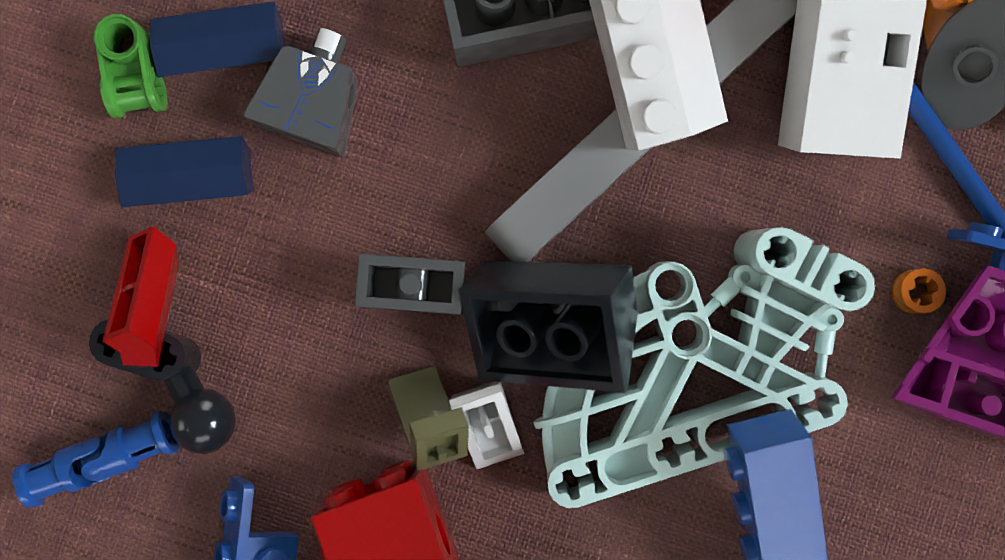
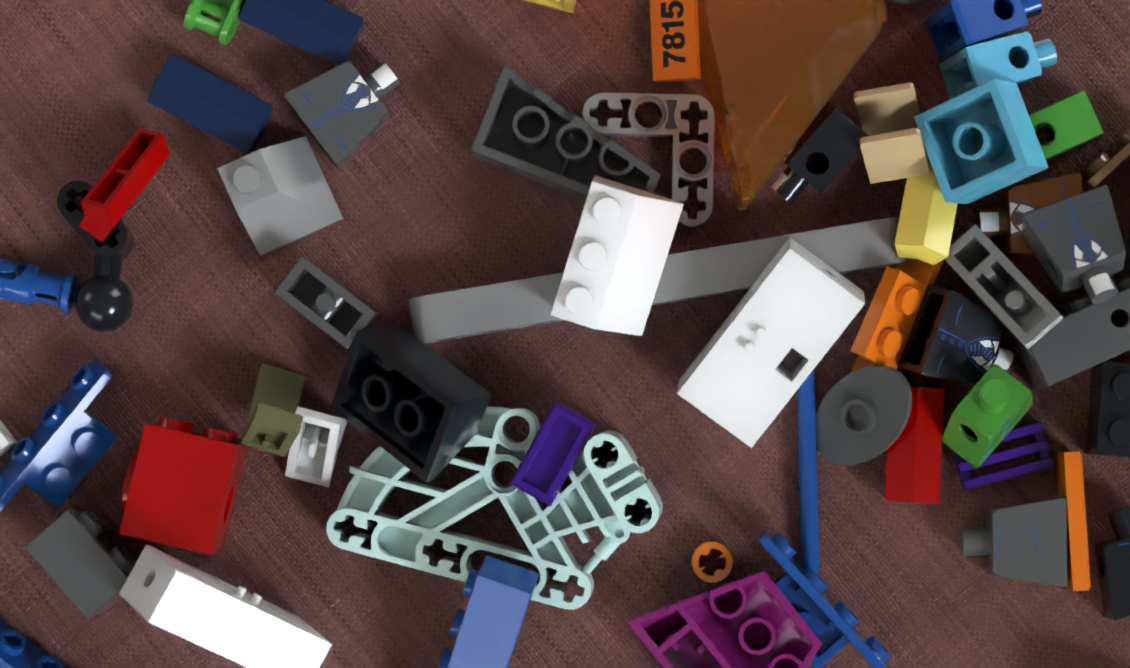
camera: 35 degrees right, 0 degrees up
(301, 213) = (280, 194): none -> light grey slope
(725, 284) = (552, 453): none -> dark purple tile

